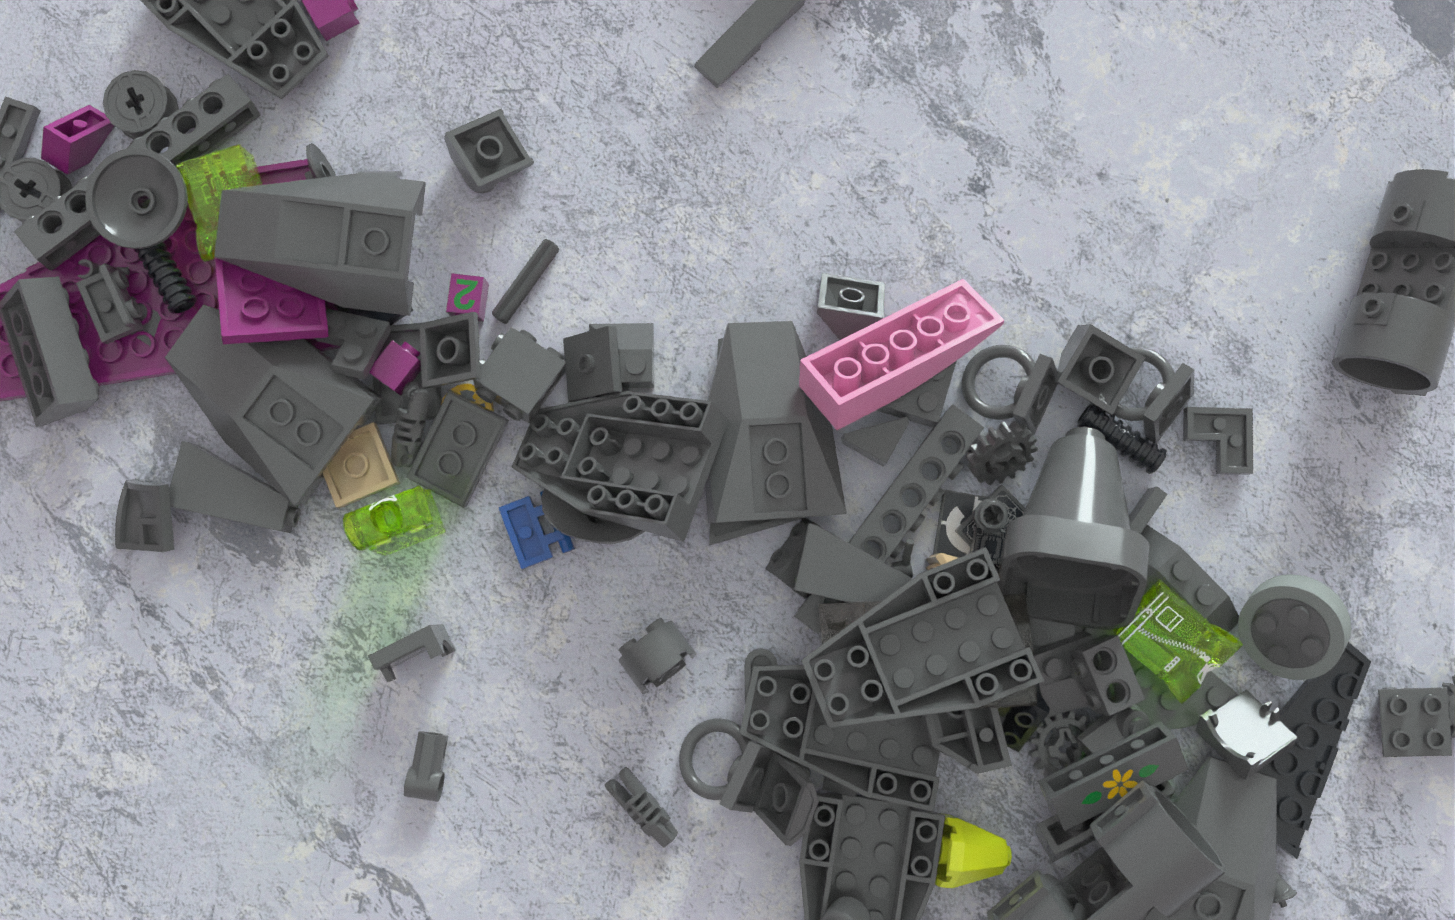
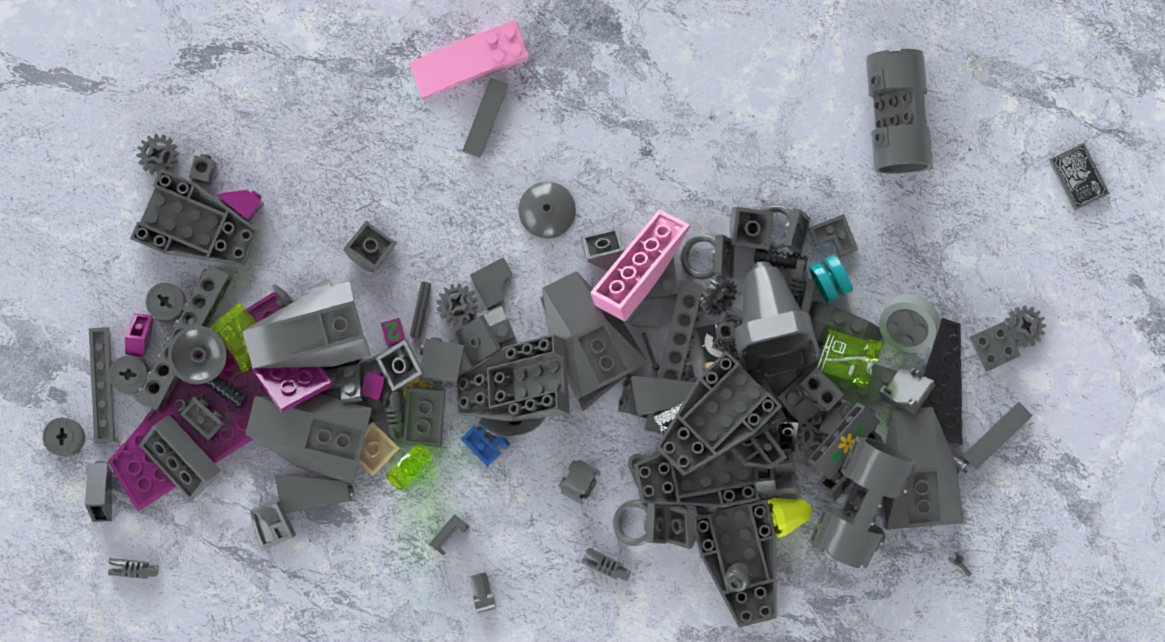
camera: 20 degrees left, 0 degrees up
(592, 287) = (464, 308): none -> dark grey gear
(652, 283) = (490, 281): none -> dark grey tile
(783, 230) = (547, 223): none -> dark grey dish
(854, 522) = (655, 366): none -> dark grey hinge
(973, 794) = (777, 480): none -> dark grey brick
(1140, 478) = (797, 280): none -> dark grey hinge
(1194, 502) = (831, 279): none -> teal wheel
(1358, 868) = (997, 435): none -> dark grey slope

